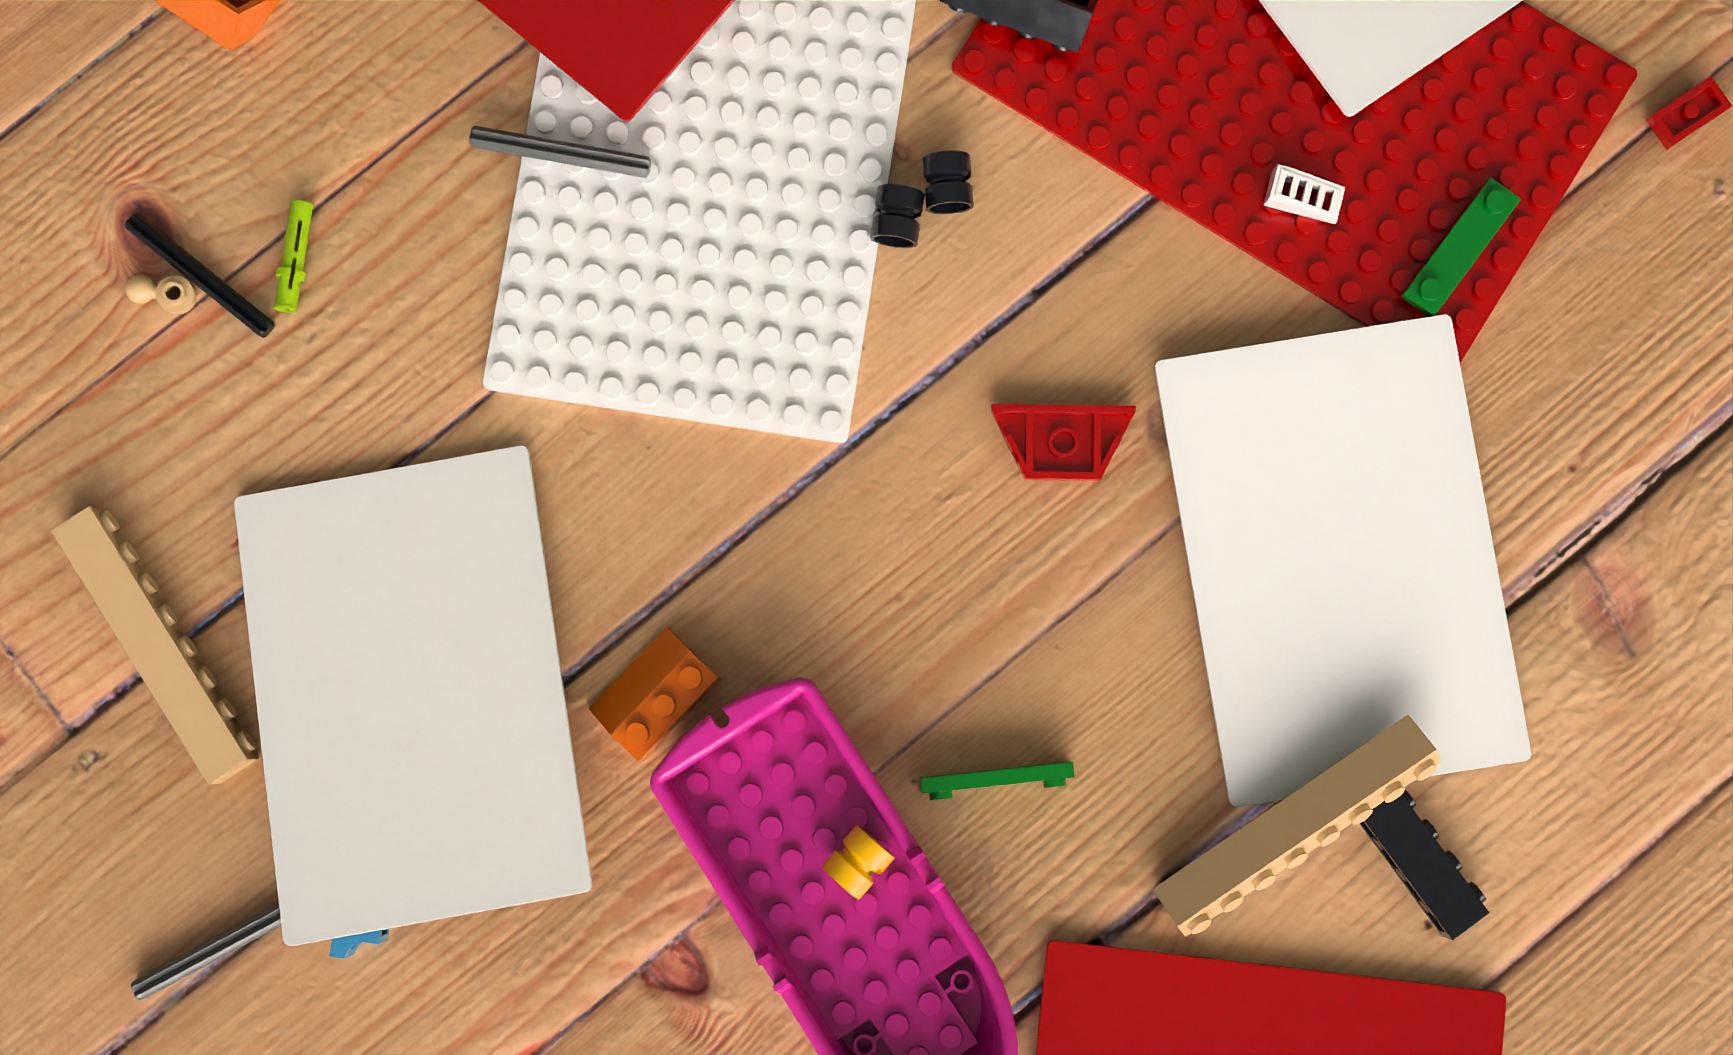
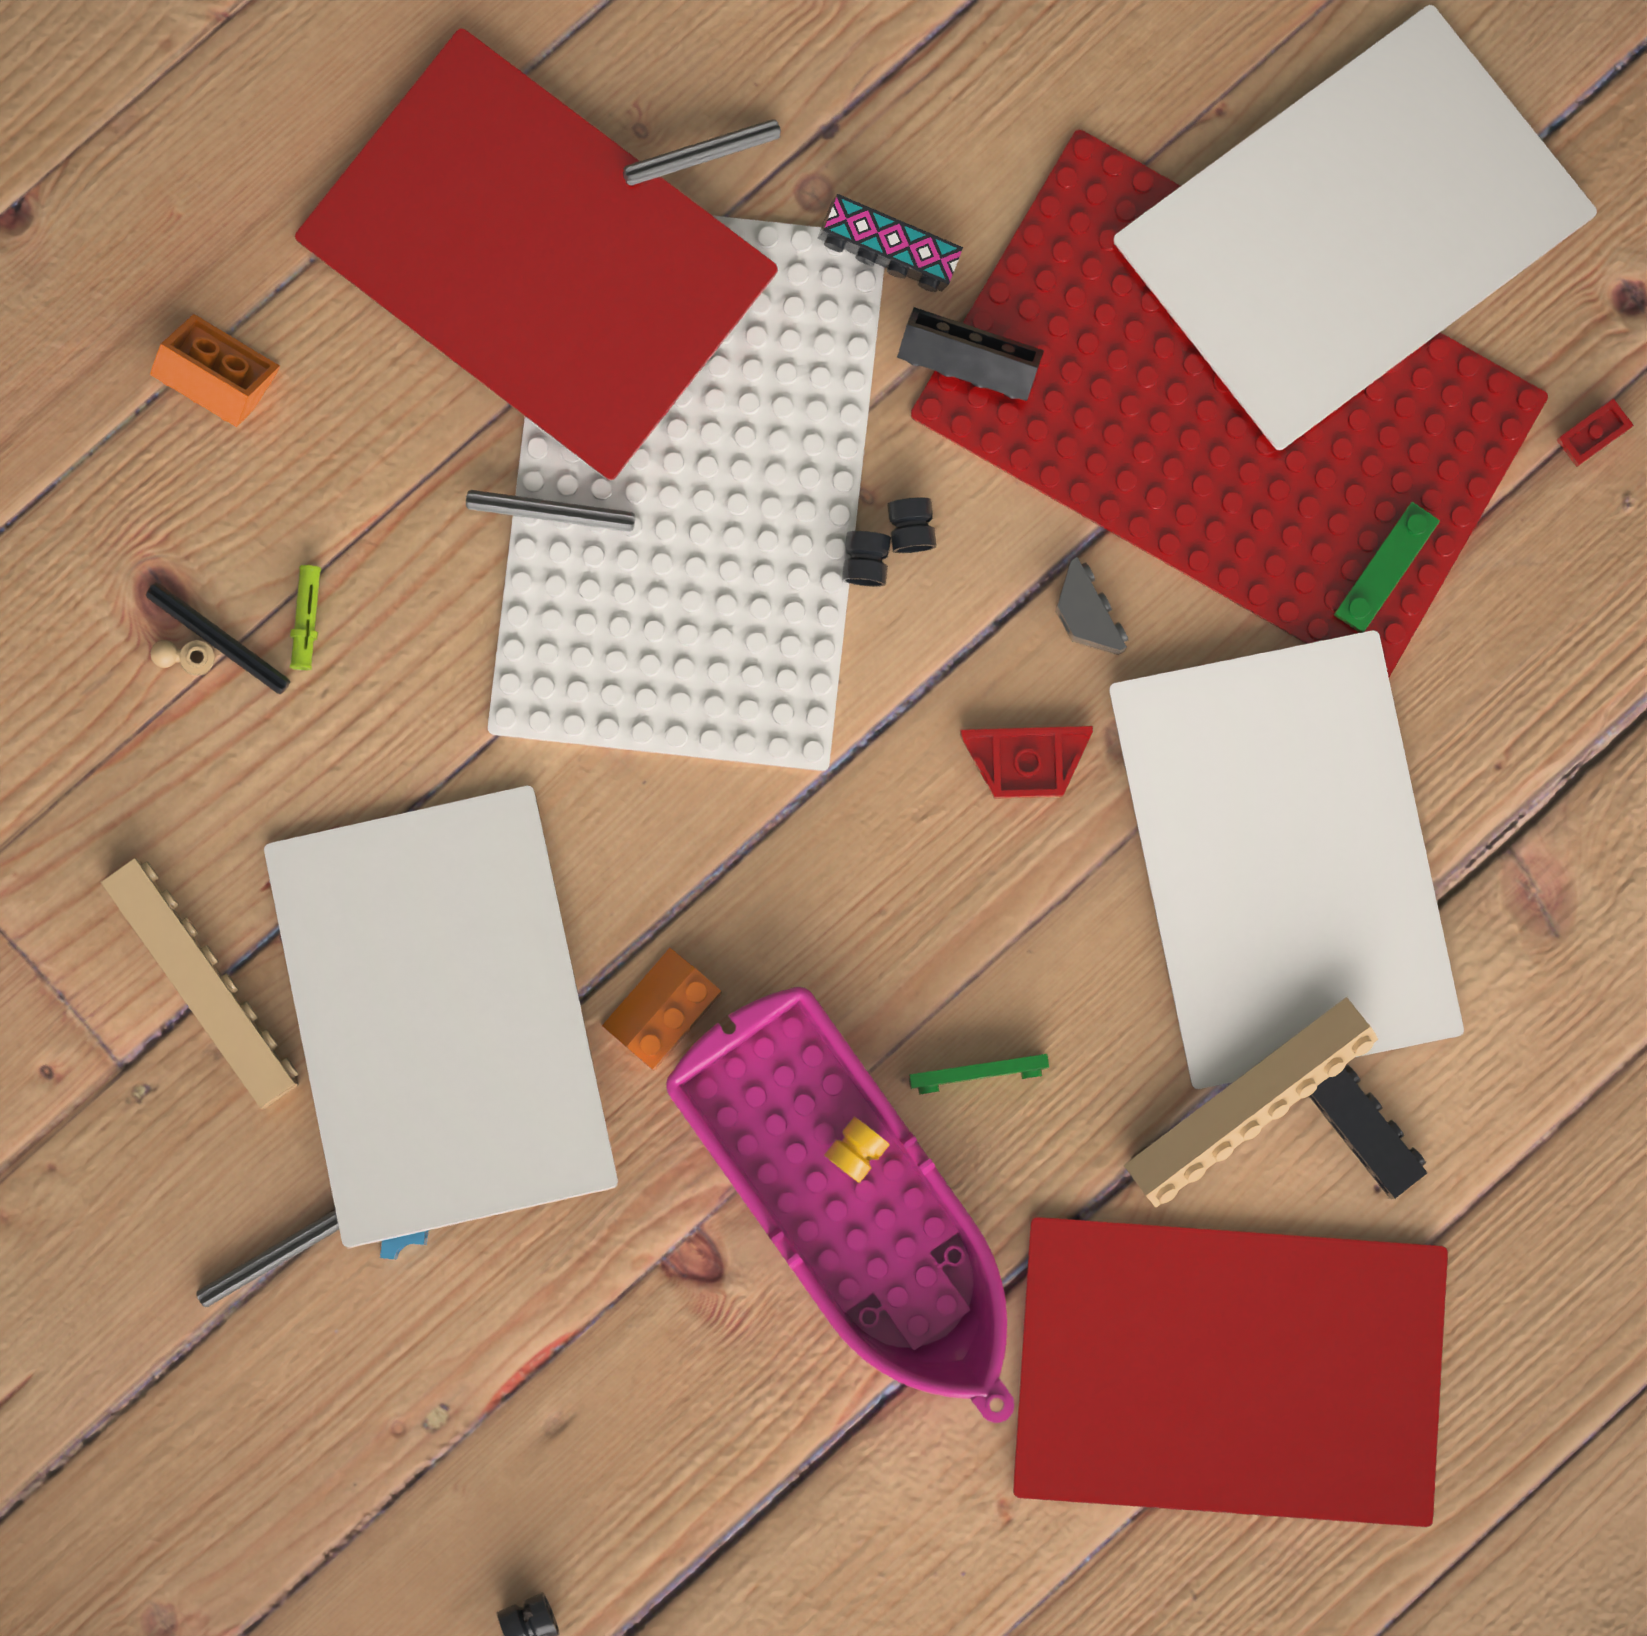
camera: 10 degrees left, 0 degrees up
(1133, 284) = (1086, 612): none -> dark grey slope
(1289, 204) = (1213, 528): white slope -> none

